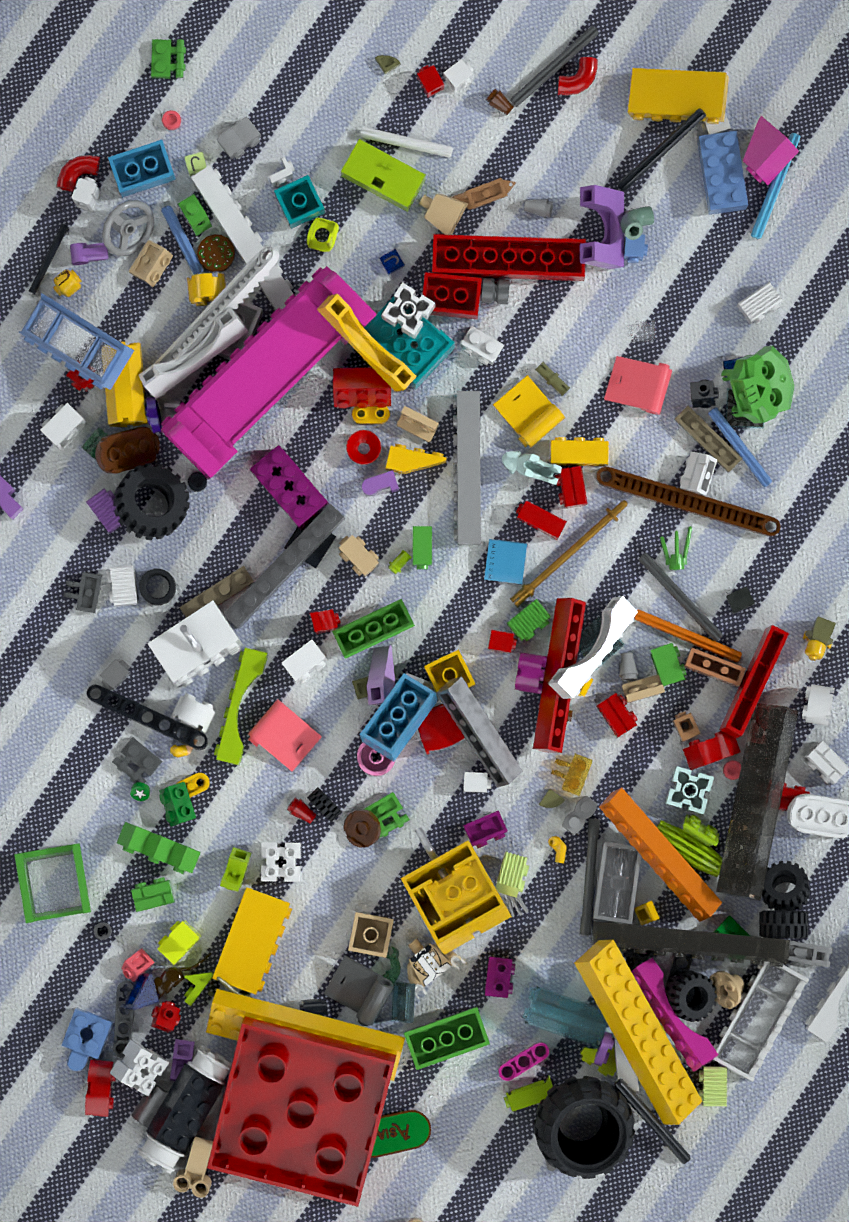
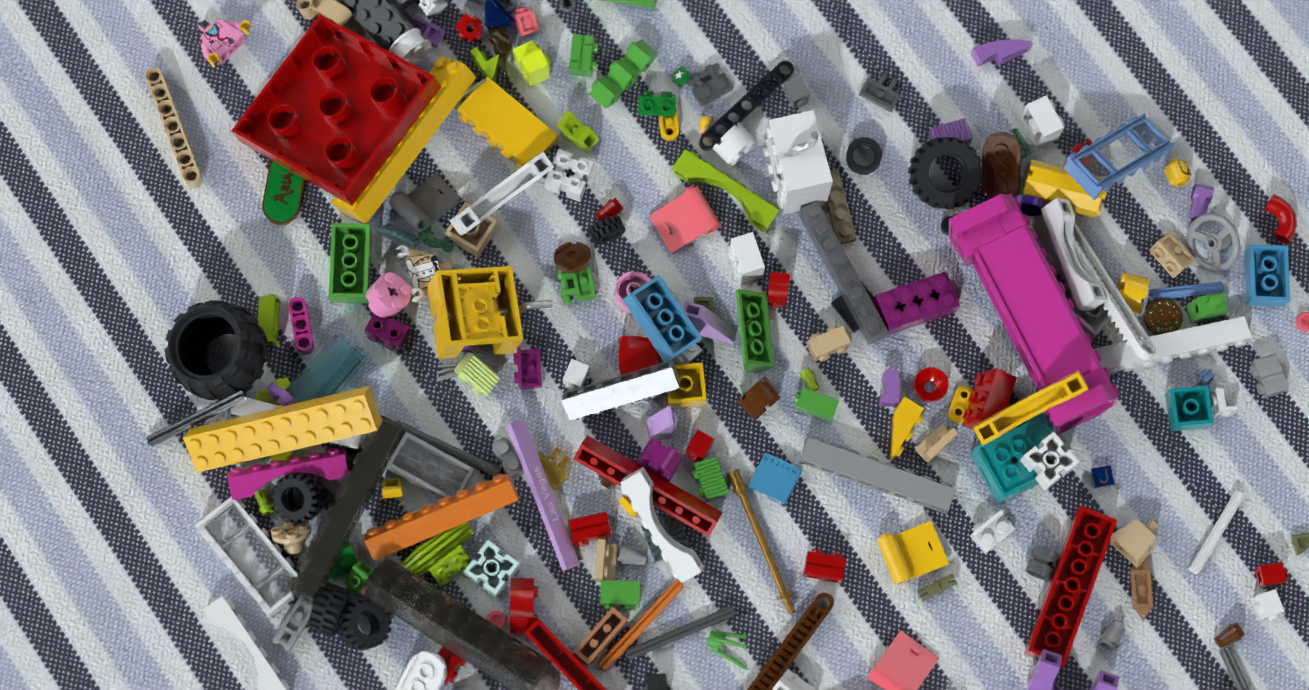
camera: 105 degrees right, 10 degrees down
(48, 258) = (1206, 166): black bar -> none
(86, 194) = (1258, 216): white brick -> none
(123, 586) = (875, 126): white brick -> none
(195, 163) = (1257, 328): yellowish green tile -> none
(261, 196) = (1206, 377): none -> medium blue plate
(314, 1006) = (425, 159): black brick -> none
(325, 246) = (1140, 422): neon yellow piece -> none
(356, 932) = (501, 193): none -> white arch
(383, 175) = (1190, 497): lime brick -> none
(436, 601) = (758, 397): none -> reddish brown brick
(453, 295) = (1051, 517): red brick -> none
(468, 986) = (388, 295): none -> bright pink brick
(497, 683) = (662, 424): none -> lavender slope
(530, 466) = (858, 531): light aqua animal -> none
(540, 519) = (803, 525): red brick -> none
(551, 800) = (536, 438): olive tile -> none
(559, 847) = (484, 431): yellow arm -> none
(579, 452) = (856, 586): yellow brick -> none
(603, 769) = (543, 495): none -> lavender tile
(692, 727) = (547, 586): medium nougat brick -> none
(706, 1026) = (264, 503): none -> lime pin
(713, 1085) = (206, 490): yellowish green brick -> none
(745, 910) = (358, 576): none -> bright green brick

